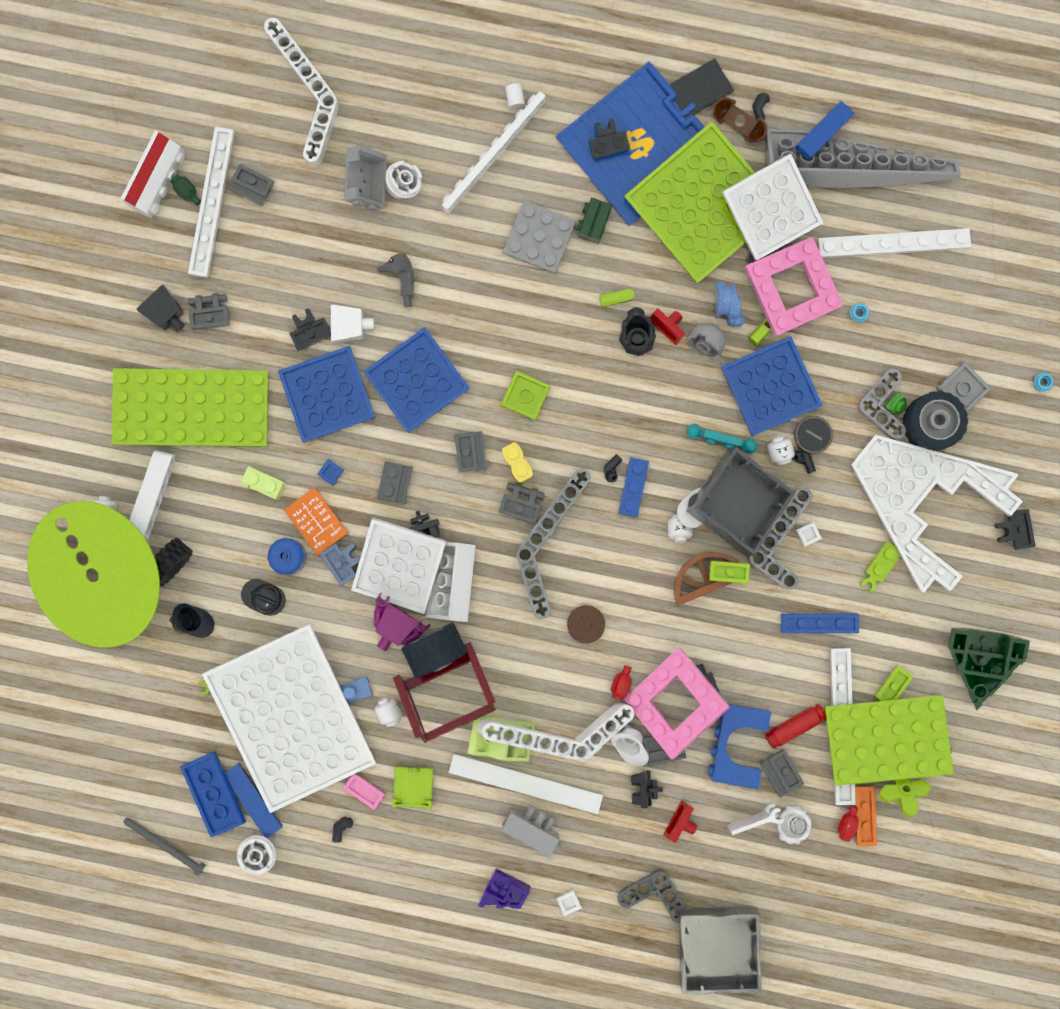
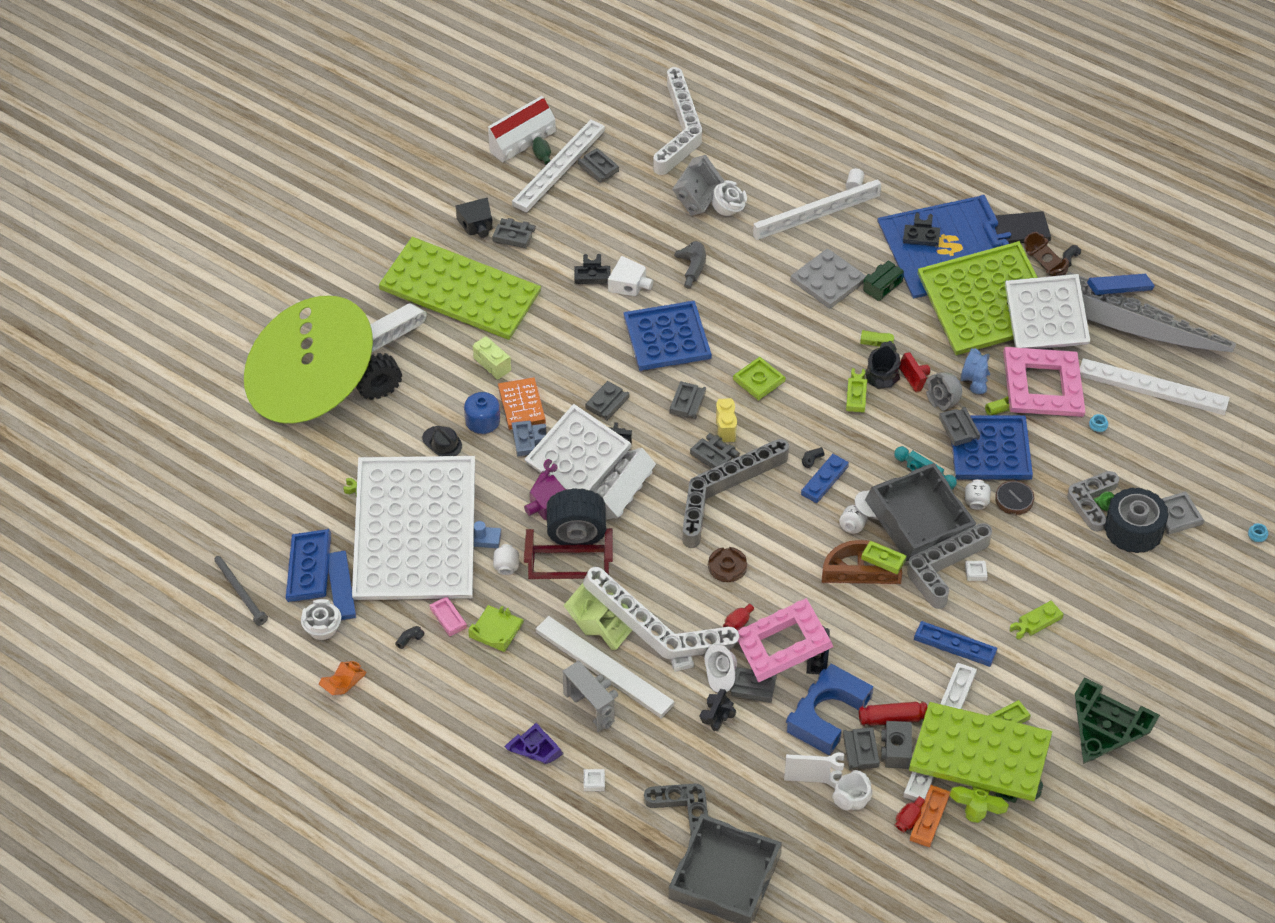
camera: 20 degrees right, 35 degrees down
(192, 621) = (368, 429): black piece -> none
(304, 900) = (344, 678): none -> orange slope
(326, 394) = (582, 318): blue plate -> none
(330, 472) = (554, 374): blue tile -> none
(623, 373) = (856, 392): none -> lime plate
(680, 822) = (740, 750): red tile -> none
(737, 381) = (959, 426): none -> dark grey plate
(805, 459) = (998, 512): black arm -> none
(820, 765) = (900, 734): none -> dark grey brick
(898, 480) = (1084, 554): white wing -> none
(1018, 530) = (1185, 635): black plate -> none

